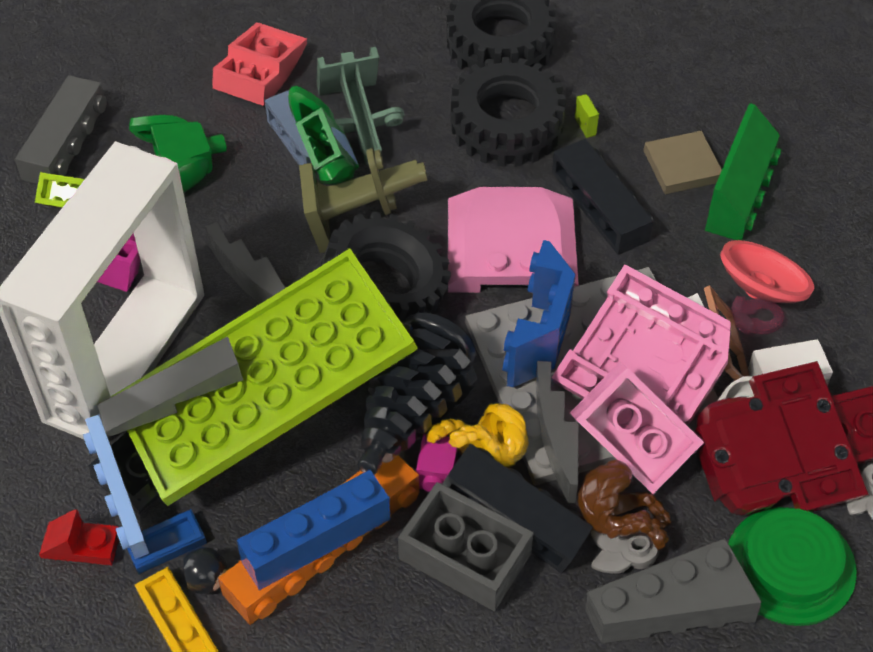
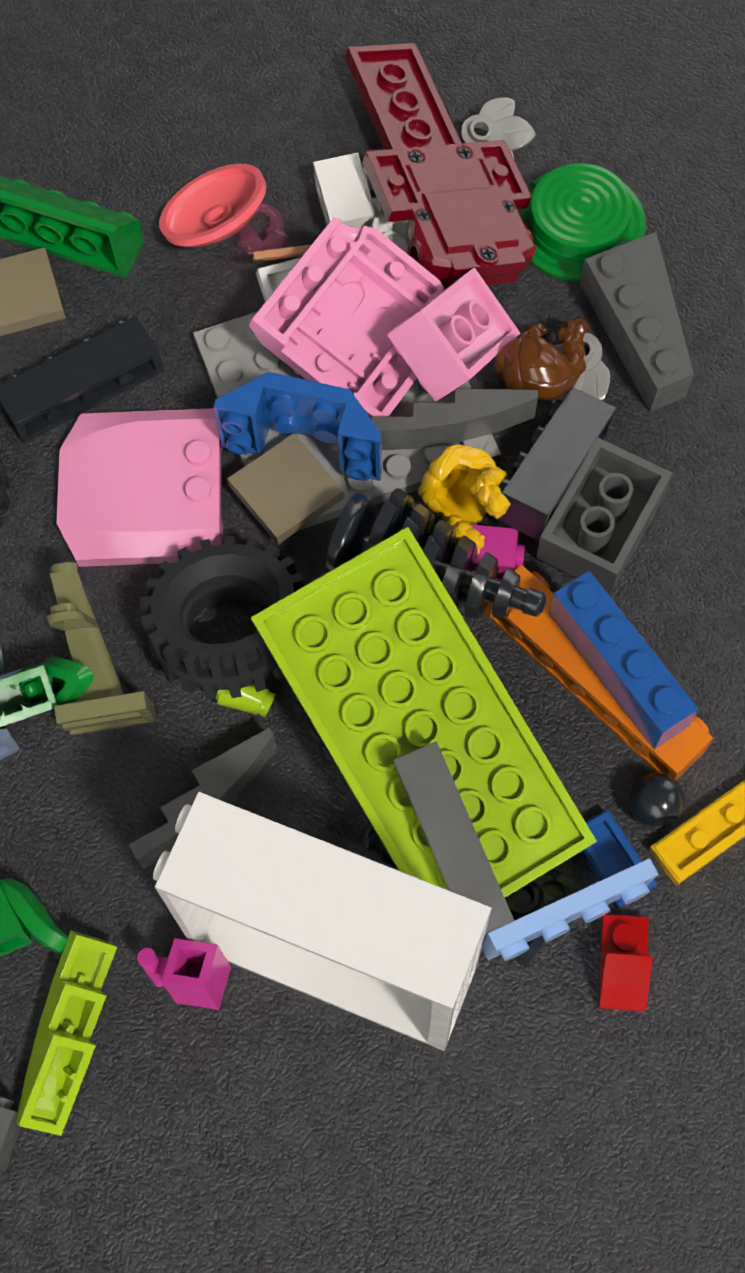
camera: 90 degrees left, 15 degrees up
(492, 314) = (286, 488): none -> dark tan tile

